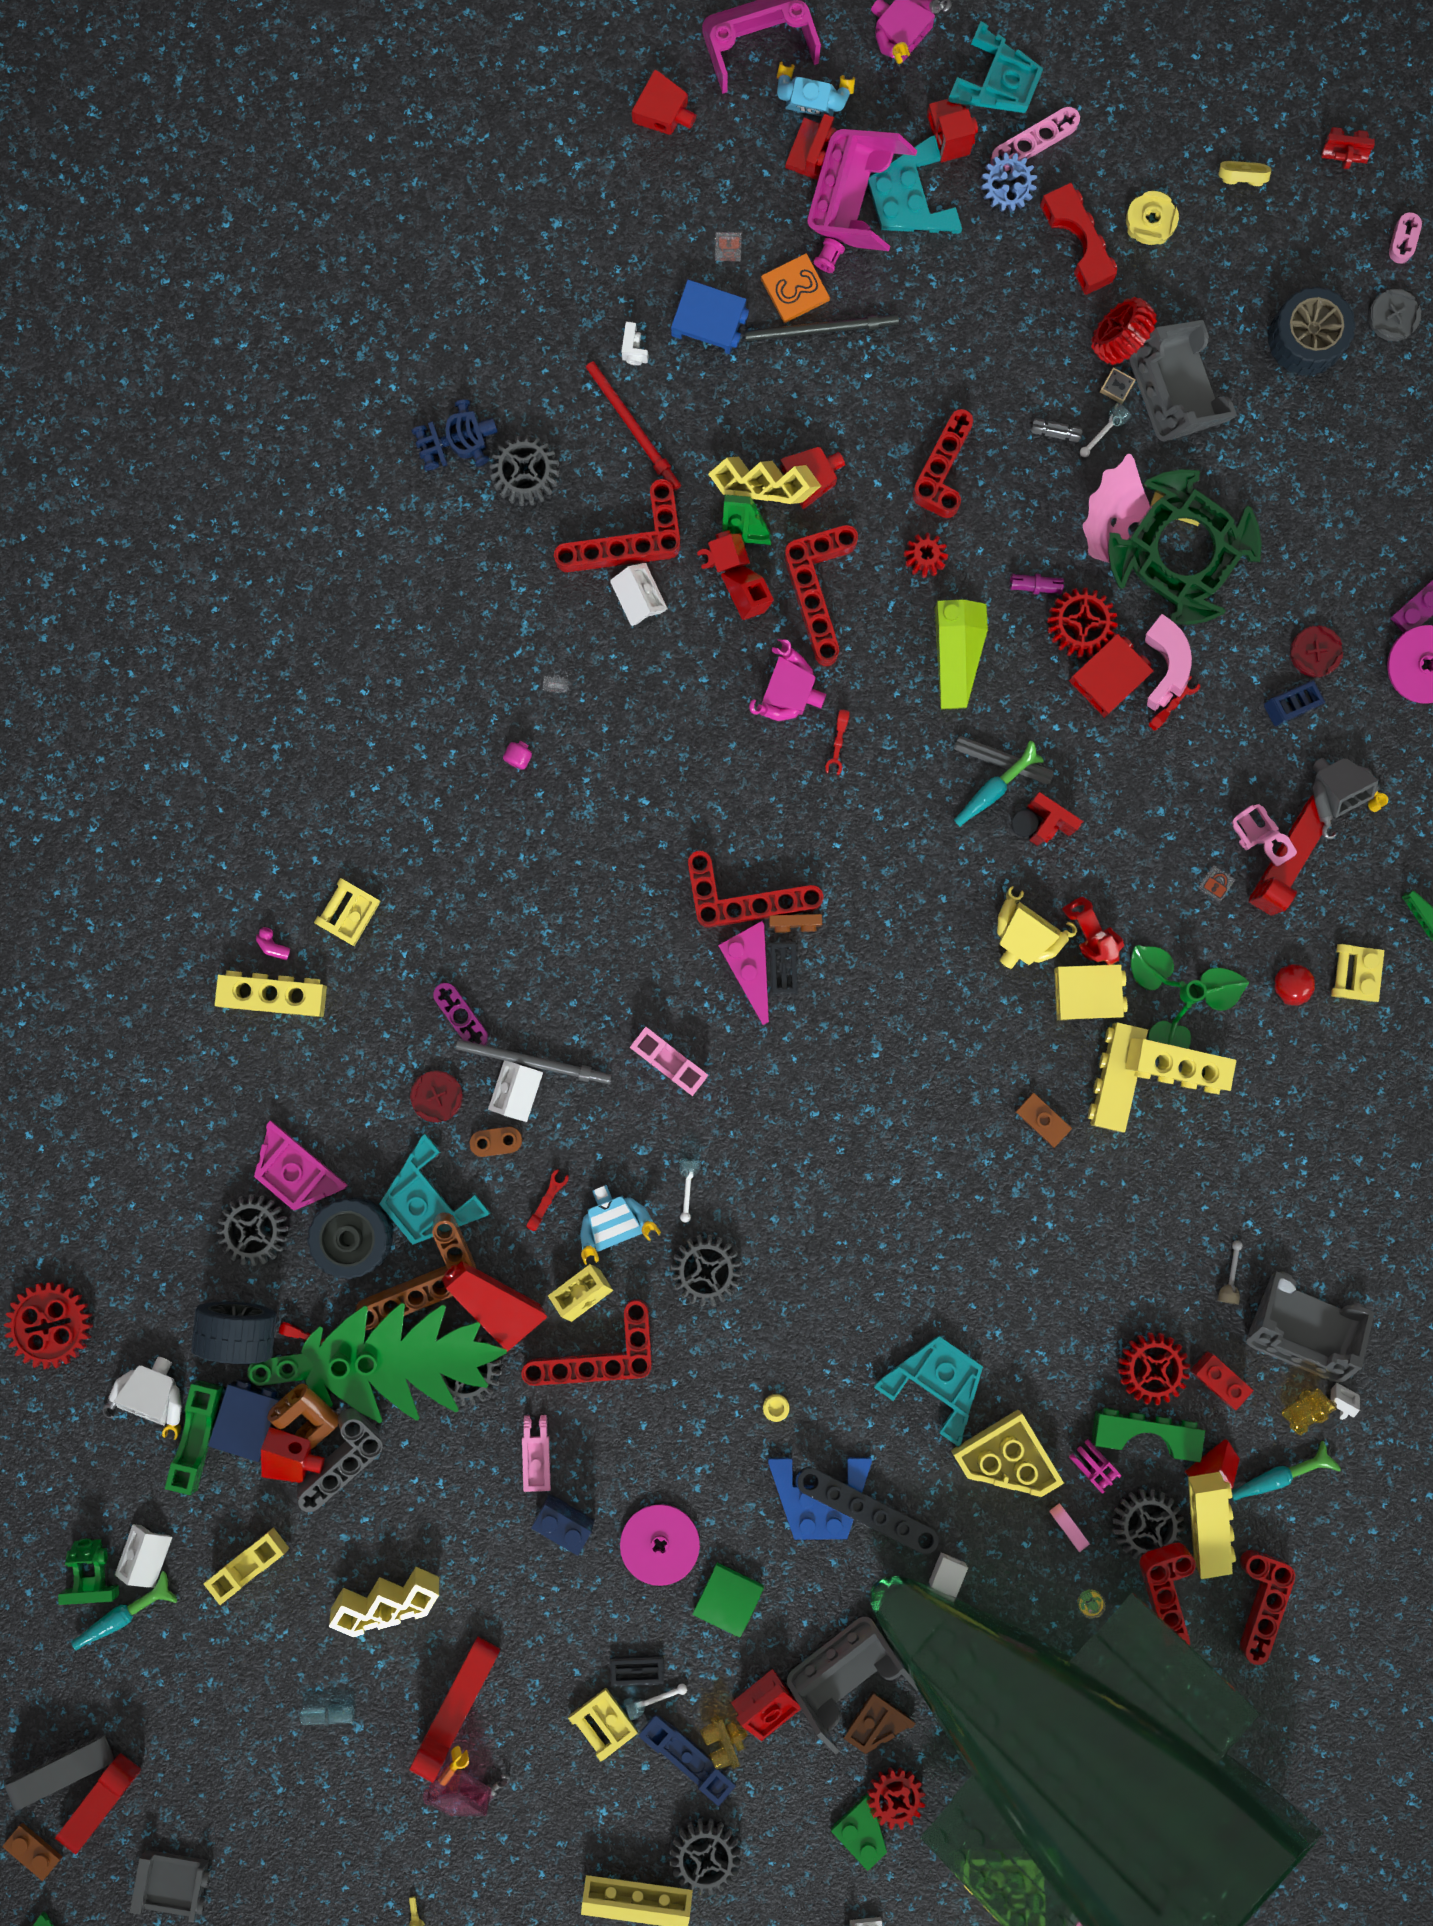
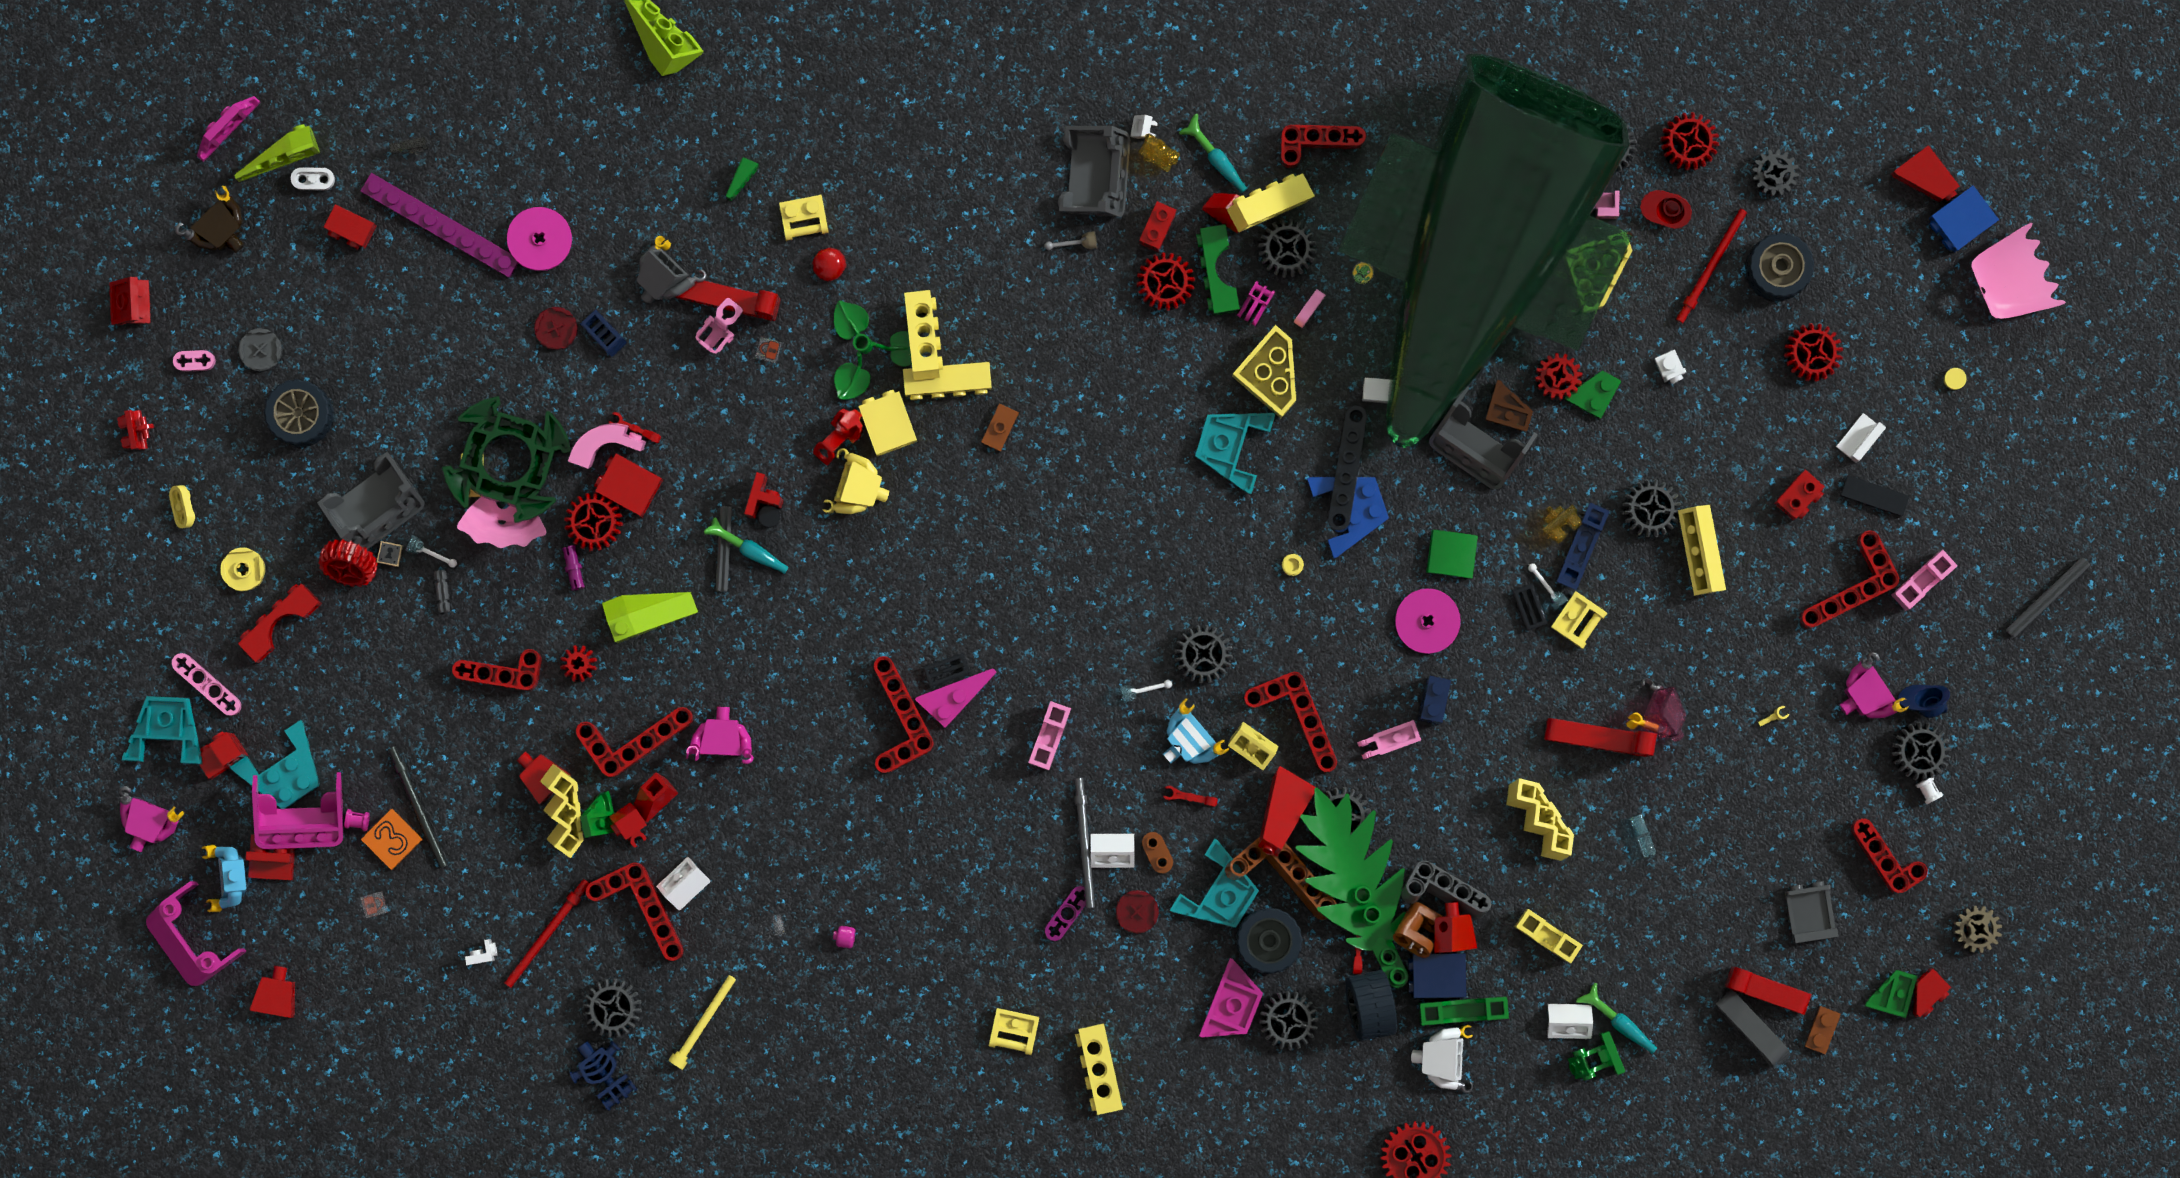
camera: 105 degrees left, 0 degrees up
(269, 947) = (1062, 1083): dark pink arm -> none
(443, 527) = (679, 1058): none -> light yellow piece
(710, 316) = (438, 899): blue panel -> none
(765, 1706) = (1522, 498): red bracket -> none
(783, 923) = (910, 680): dark orange plate -> none
(842, 722) = (734, 687): red piece -> none
(1020, 191) = (262, 698): medium blue gear -> none
(1162, 1578) = (1323, 226): red beam -> none

